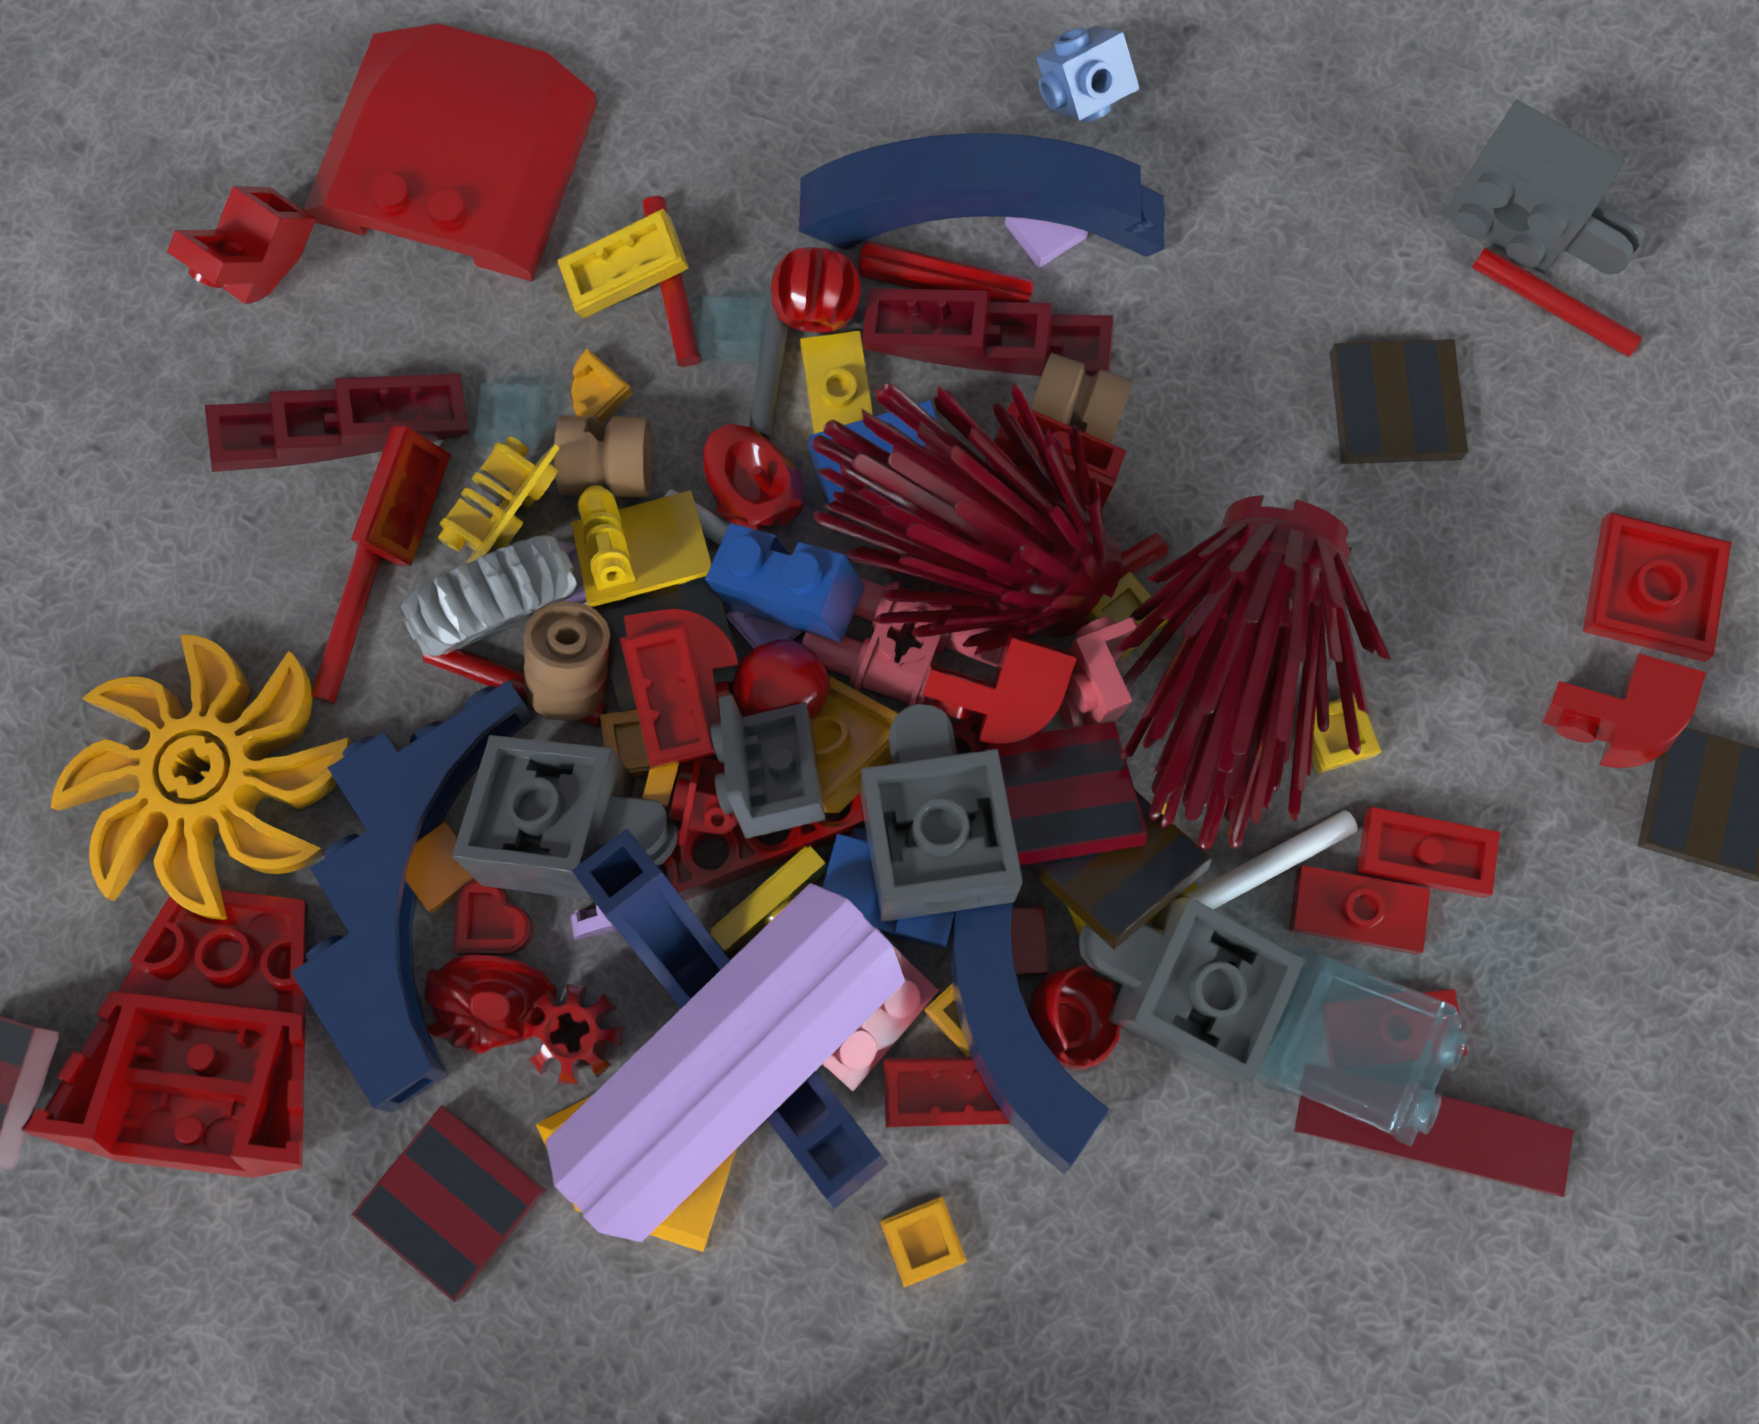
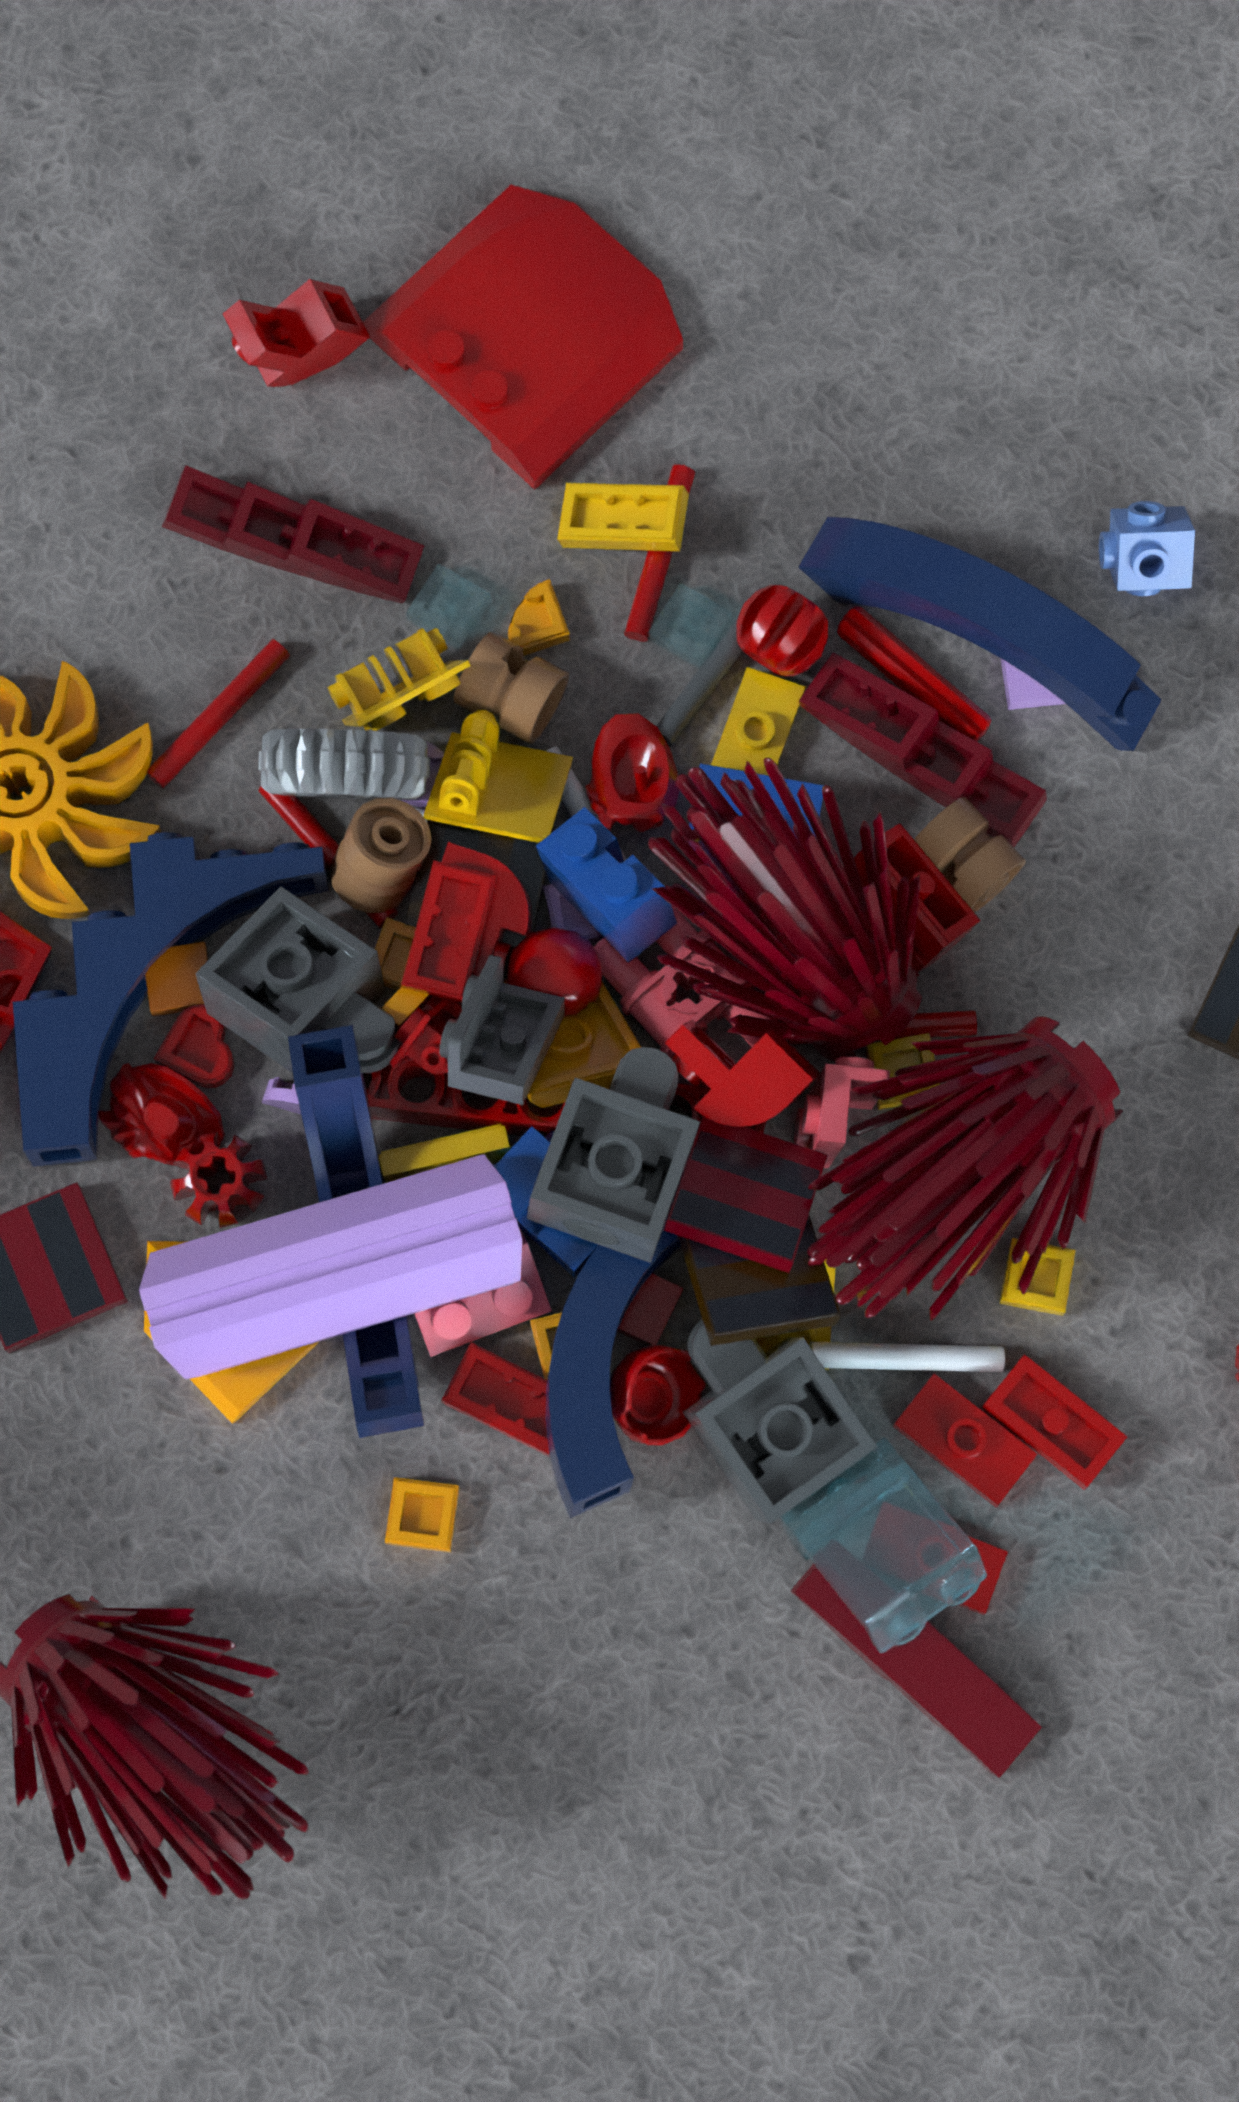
camera: 30 degrees right, 0 degrees up
(401, 496) = (314, 633): red plate -> none

